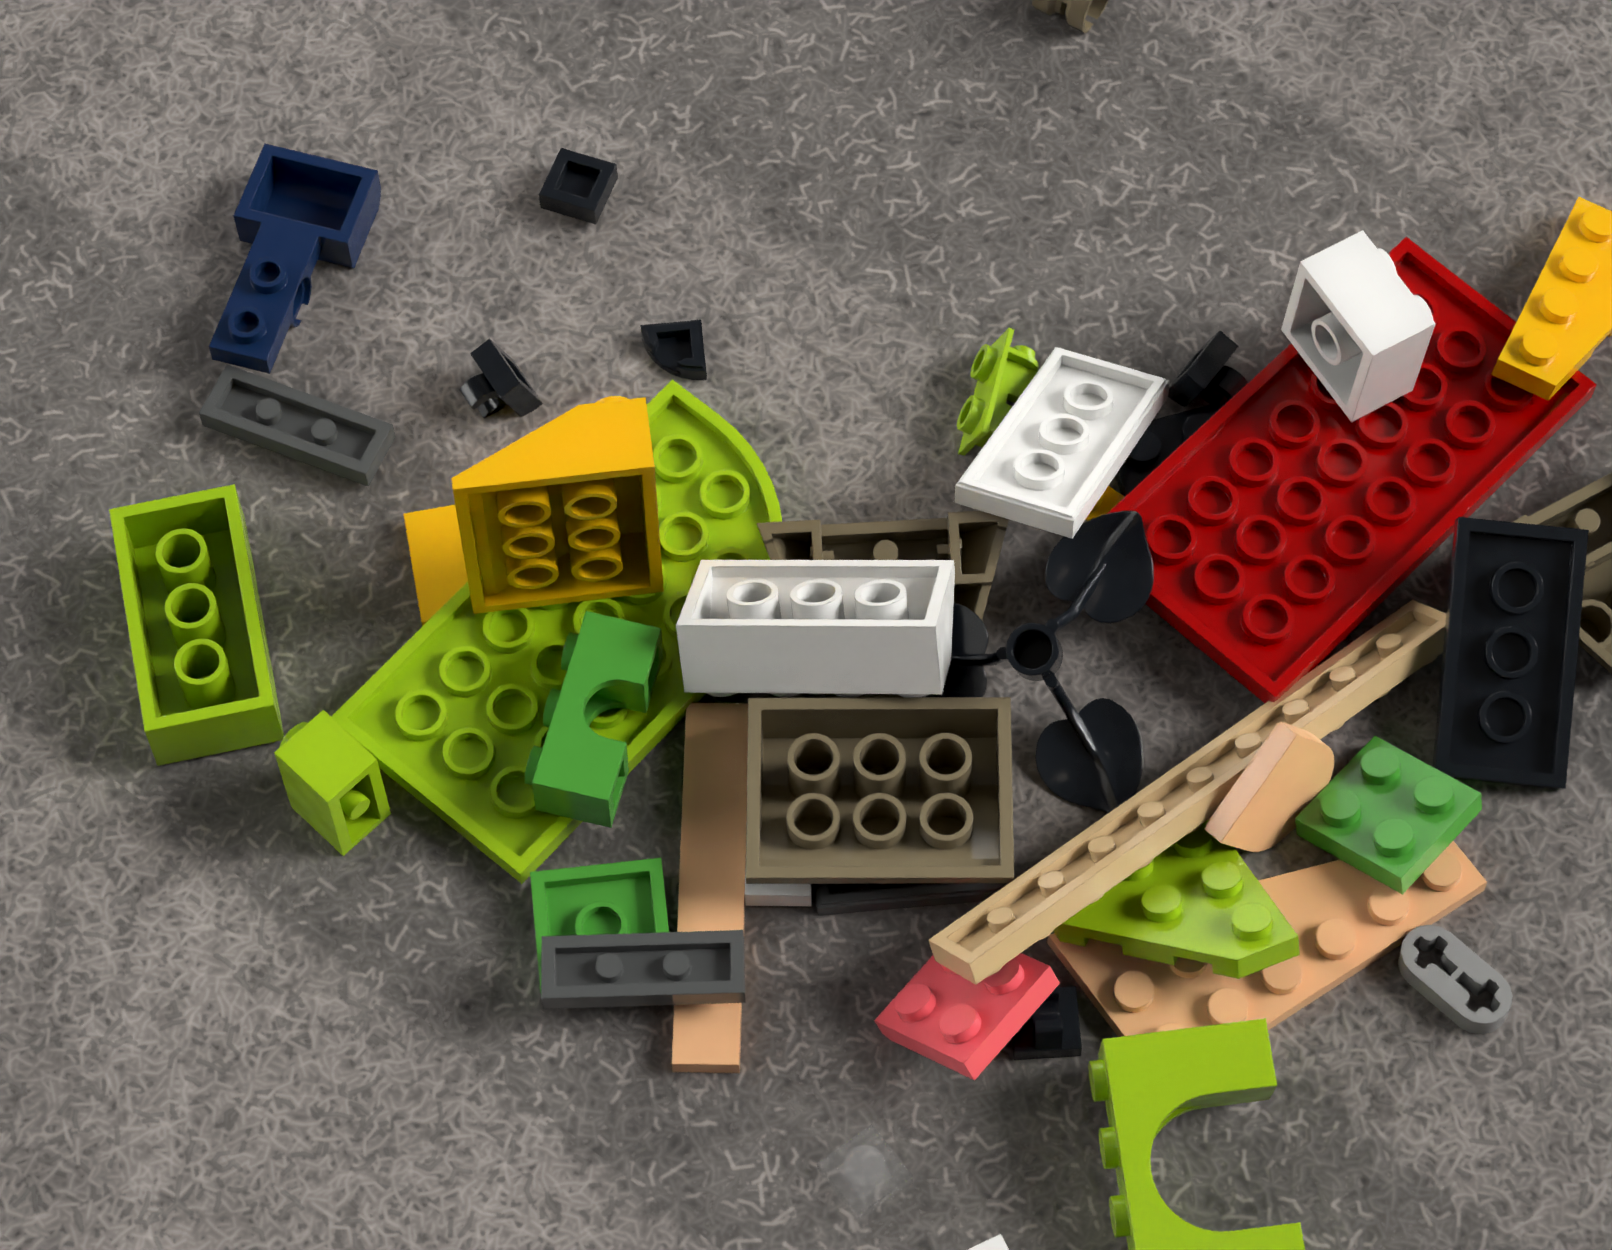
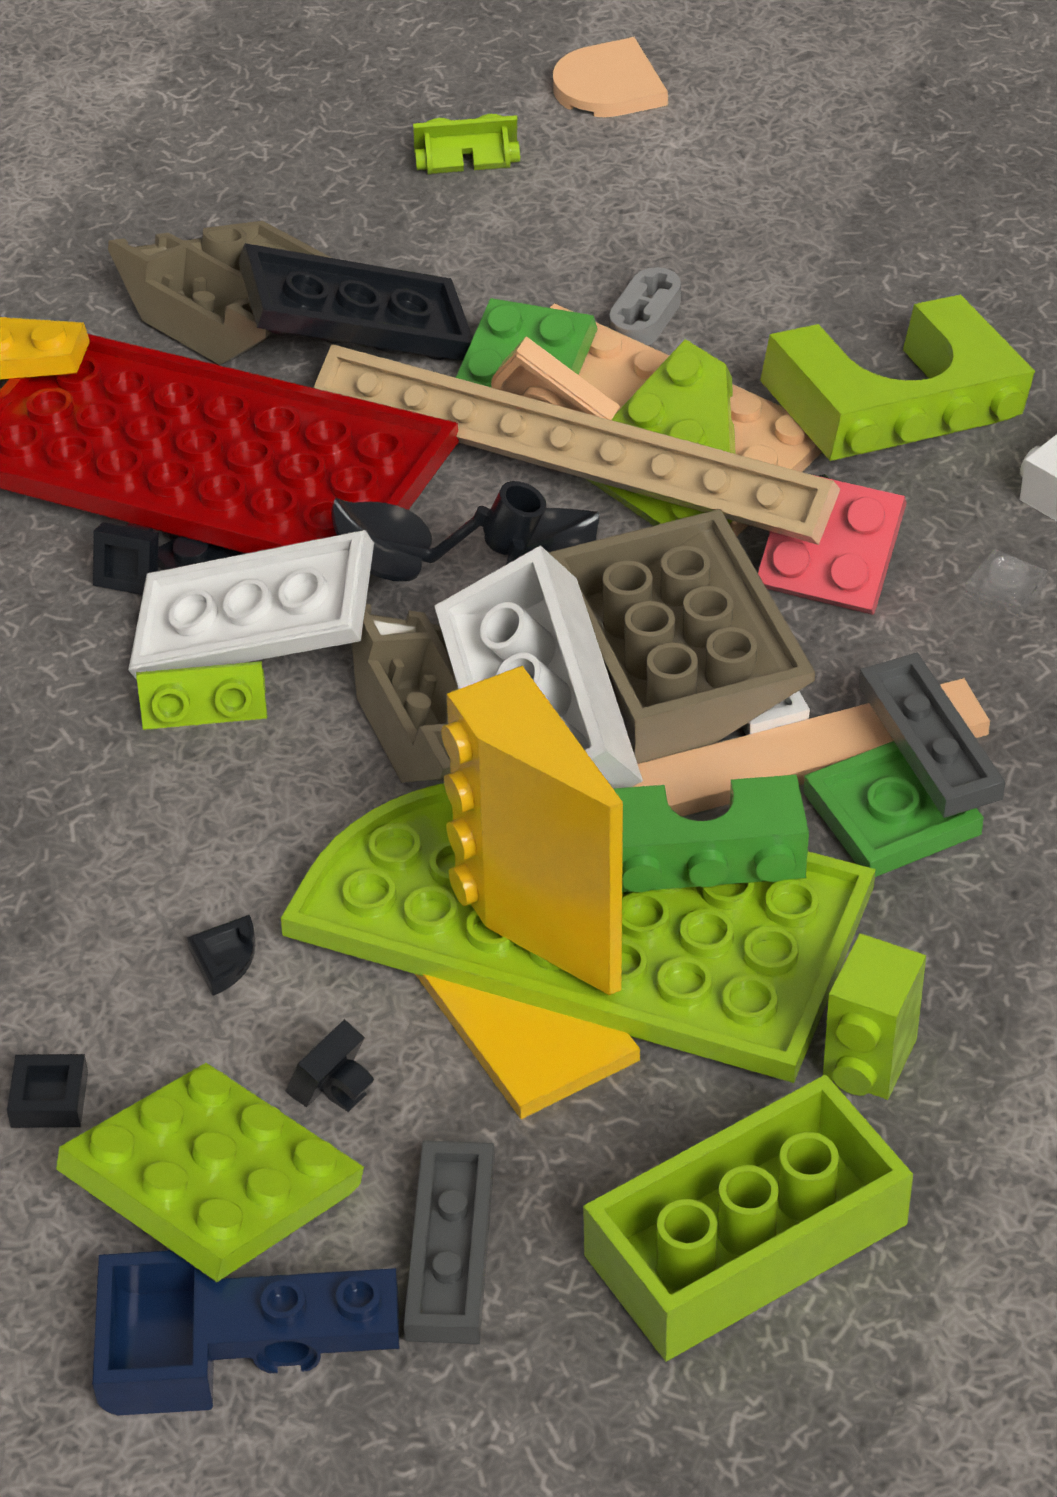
camera: 110 degrees left, 15 degrees down
(431, 267) = (210, 1170): none -> lime plate
(1358, 325) = (82, 411): white brick -> none

